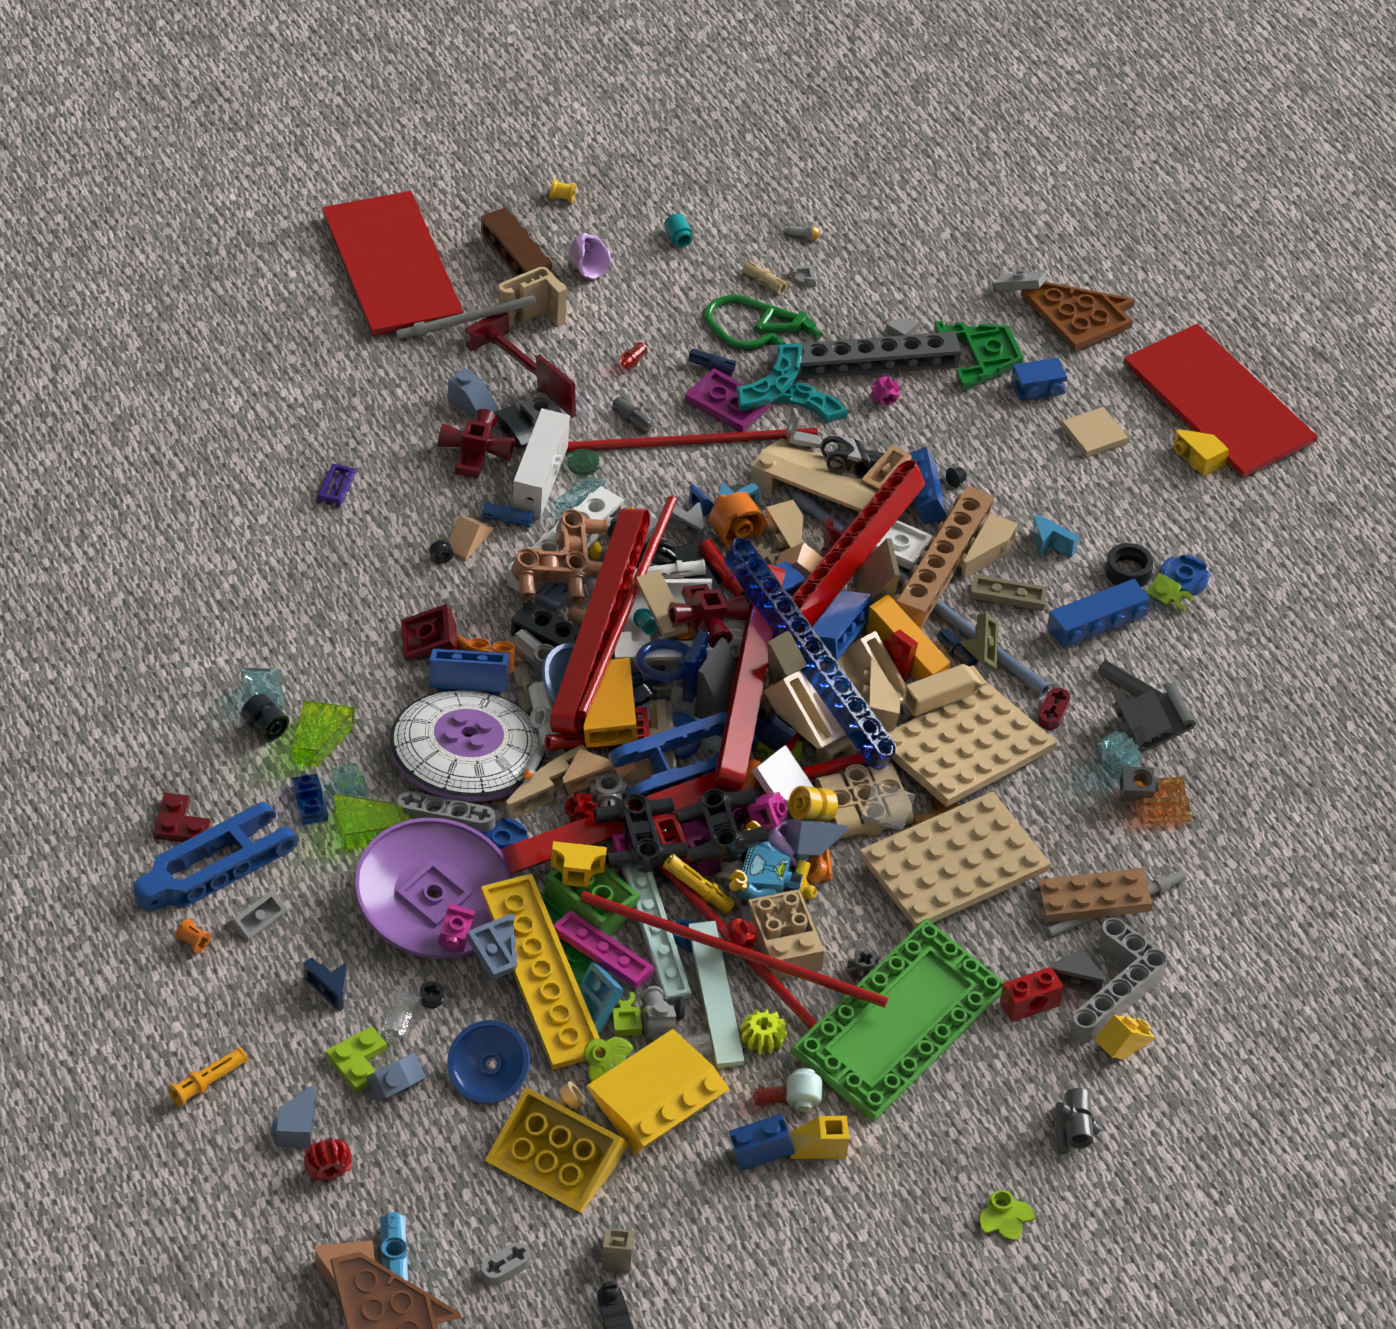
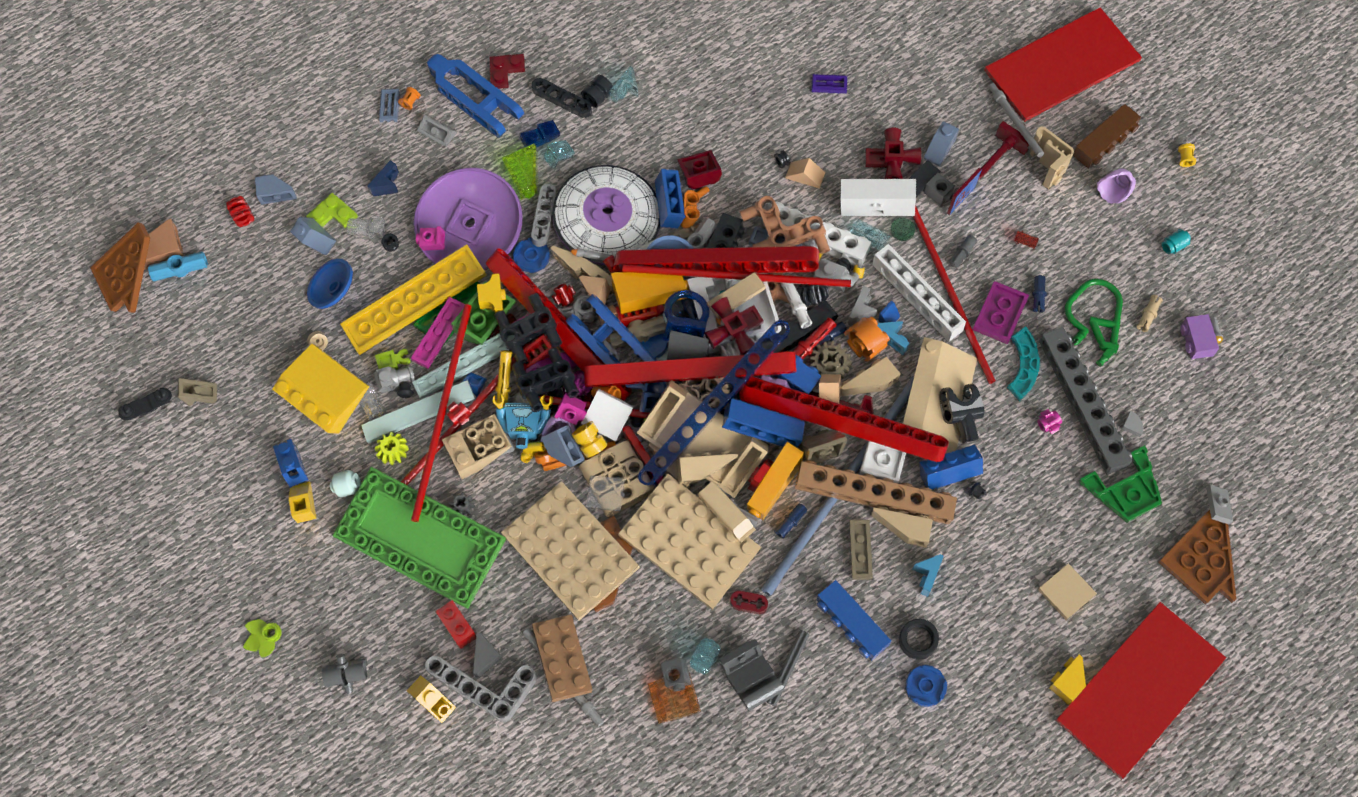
camera: 85 degrees right, 20 degrees up
(190, 969) = (390, 92): none -> sand blue tile
(198, 1081) = (296, 130): light orange pin -> none
(251, 762) = (561, 98): none -> black beam
(320, 731) = (594, 125): clear neon green slope -> none
(495, 946) = (416, 264): sand blue wing -> none
(505, 1263) = (180, 334): light grey beam -> none
(508, 514) = (832, 192): blue pin -> none
(556, 1150) = (273, 340): yellow slope -> none
(600, 994) = (399, 340): dark azure wing -> none
(613, 1053) = (349, 354): lime plate -> none
(683, 461) = (919, 293): none -> white brick
(769, 1095) = (339, 461): clear red pin -> none
(776, 383) = (1025, 340): teal tile -> none
(783, 657) = (699, 386): dark tan slope -> none
(800, 439) = (976, 369): light grey bracket -> none
(804, 274) = (1166, 341): light grey tile -> none
(809, 243) = (1199, 336): none -> medium lavender brick
(885, 466) = (956, 435): light nougat slope -> none
(986, 642) = (791, 537): olive slope -> none
(1038, 379) = (1108, 537): blue brick -> none
(1166, 591) = (898, 672): lime plate -> none

